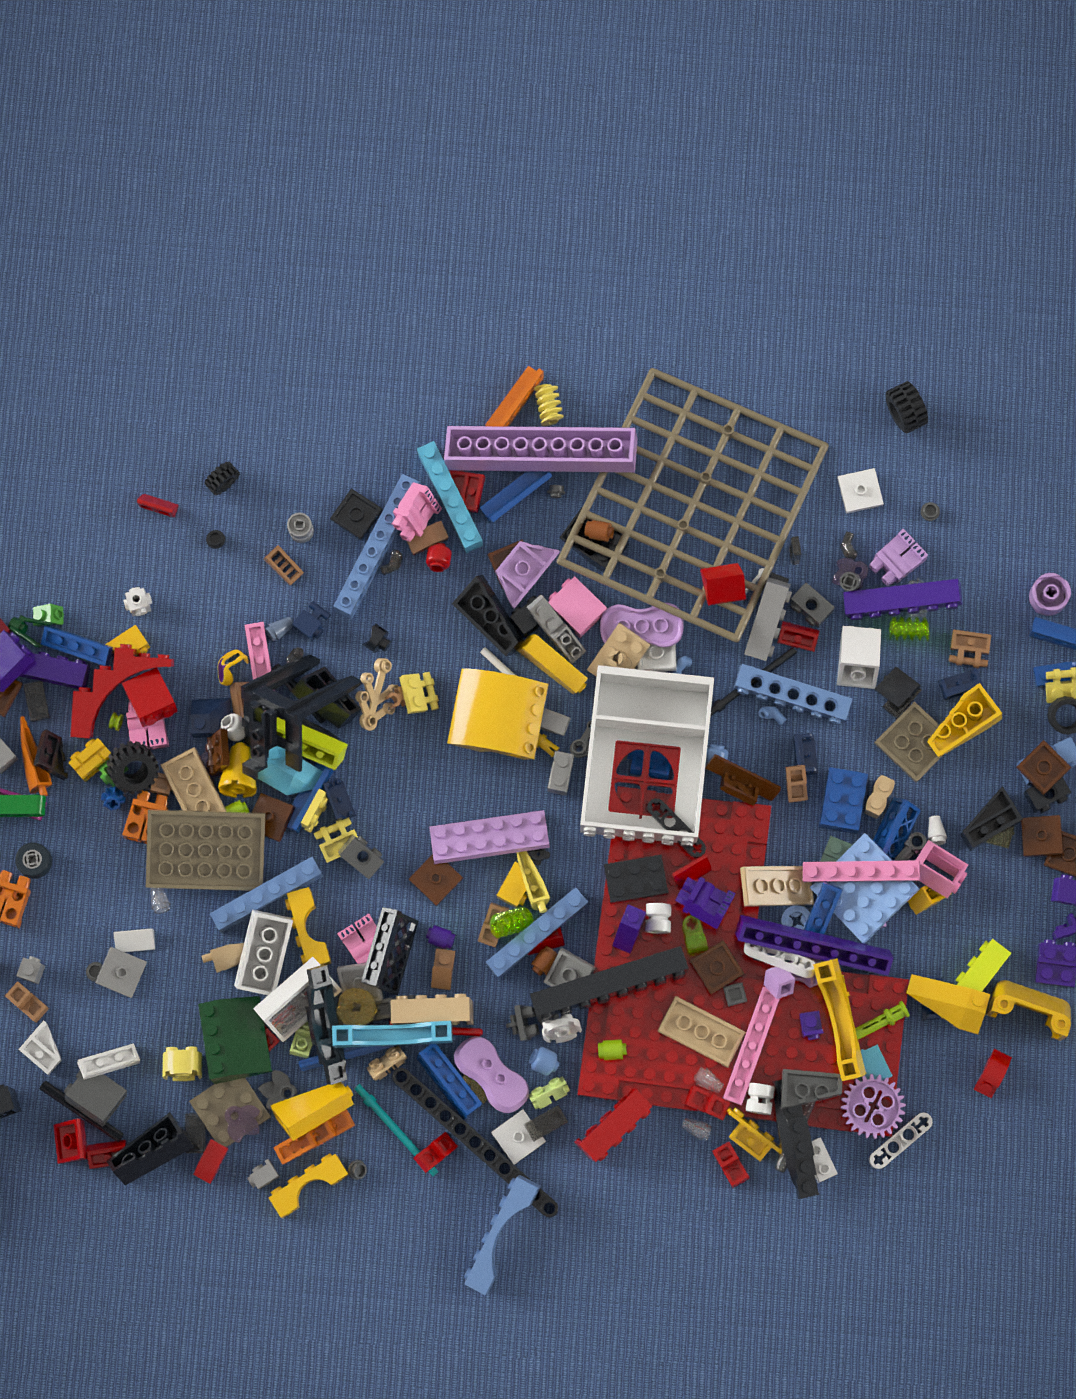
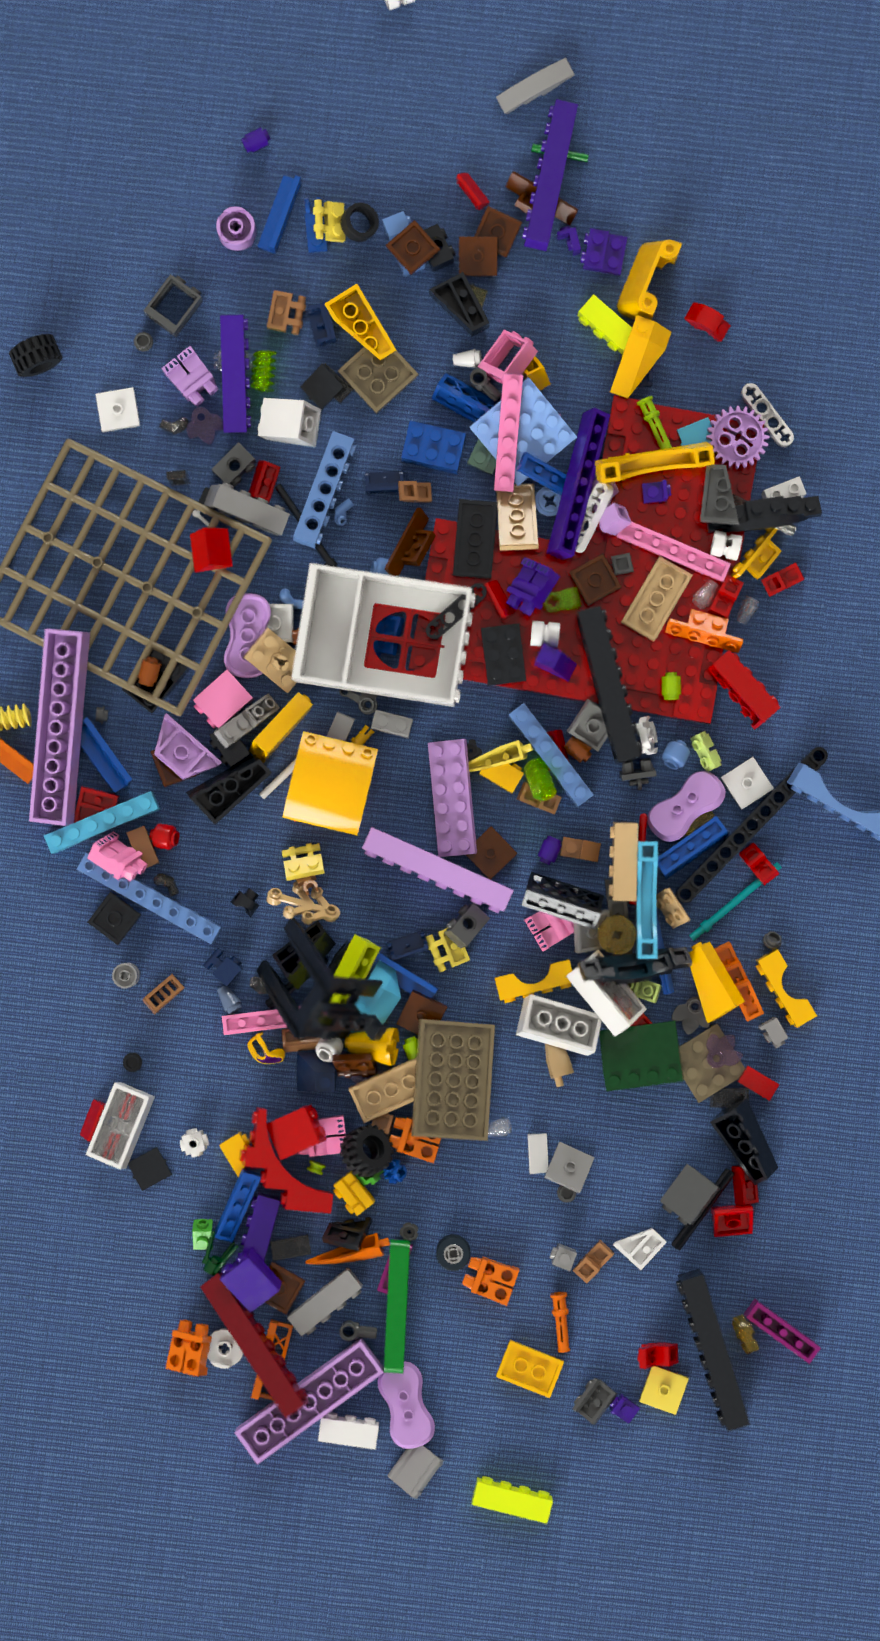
camera: 90 degrees left, 10 degrees up
(53, 821) = (408, 1226): none -> dark grey plate
(108, 1061) = (657, 1181): white tile -> none
(111, 561) = (149, 1168): none -> black piece
(153, 530) = (120, 1125): none -> brick
(182, 1064) = (664, 1108): light yellow brick -> none
(222, 478) = (70, 1053): black tyre -> none
(277, 887) = (499, 1020): medium blue arch -> none
(314, 811) = (424, 972): light yellow plate -> none
(416, 824) = (435, 868): none -> lavender brick
(546, 1123) = (735, 755): clear smoke tile -> none
(673, 1082) = (705, 629): none -> orange bracket
(751, 845) = (475, 539): none -> black tile
(850, 581) = (210, 424): dark grey wheel -> none
(880, 793) = (426, 409): tan brick -> none
(989, 532) = (150, 310): none -> dark grey window

